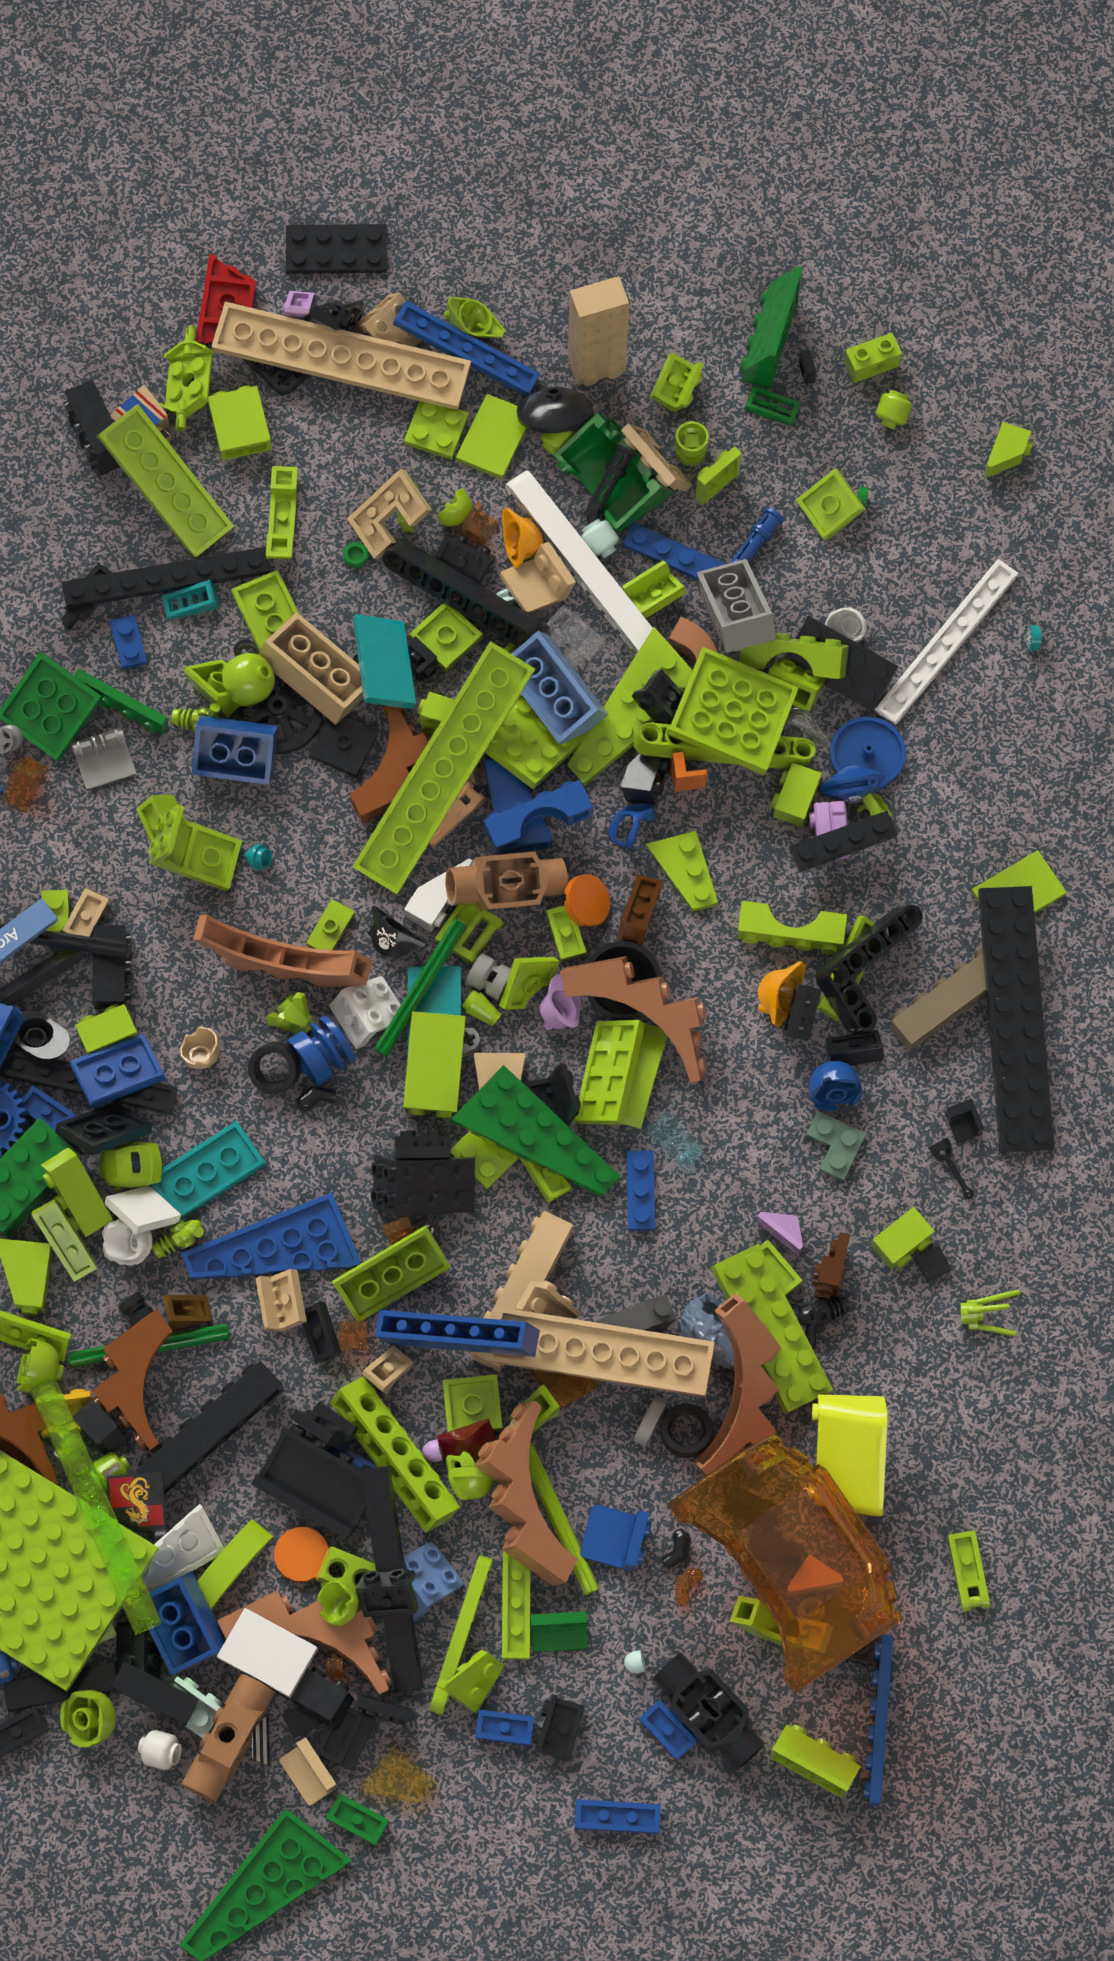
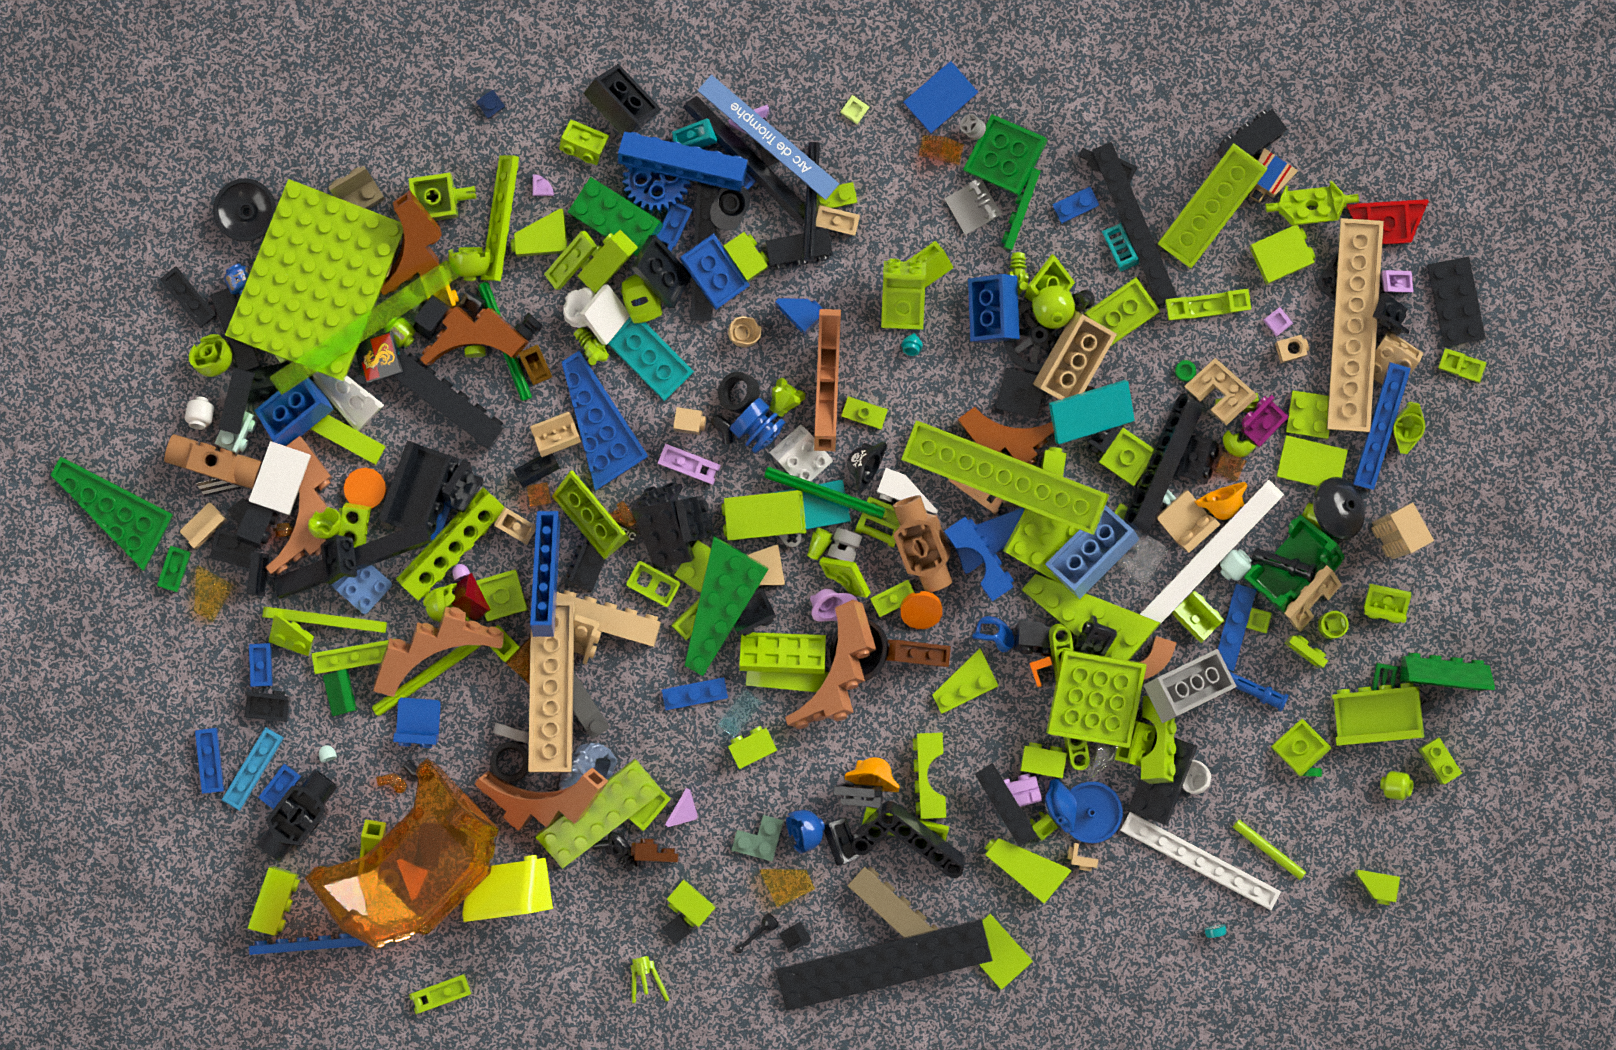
camera: 85 degrees right, 15 degrees up
(92, 1375) = (471, 304): none -> black plate
(154, 1383) = (475, 351): none -> lime tile
(192, 975) = (800, 312): none -> blue slope
(298, 1131) = (689, 421): none -> tan brick
(318, 444) = (1277, 321): none -> lavender tile
(350, 1147) = (688, 463): none -> lavender plate
(358, 441) = (1285, 355): none -> tan brick
(412, 255) = (1462, 365): none -> lime slope
(434, 475) = (1263, 422): none -> magenta bracket
(456, 1293) = (586, 568): none -> black bracket
(485, 1210) = (657, 577): none -> lime piece
(638, 1763) = (252, 768): none -> dark azure tile
(671, 526) = (1259, 620): none -> lime tile
(720, 1130) = (752, 747): none -> lime brick
(807, 412) = (1378, 714): none -> lime panel
(897, 1120) = (786, 884): none -> clear yellow wing
(920, 780) = (1083, 862): none -> tan bracket
(925, 834) = (1032, 871): none -> lime slope
(945, 563) = (1269, 849): none -> lime piece

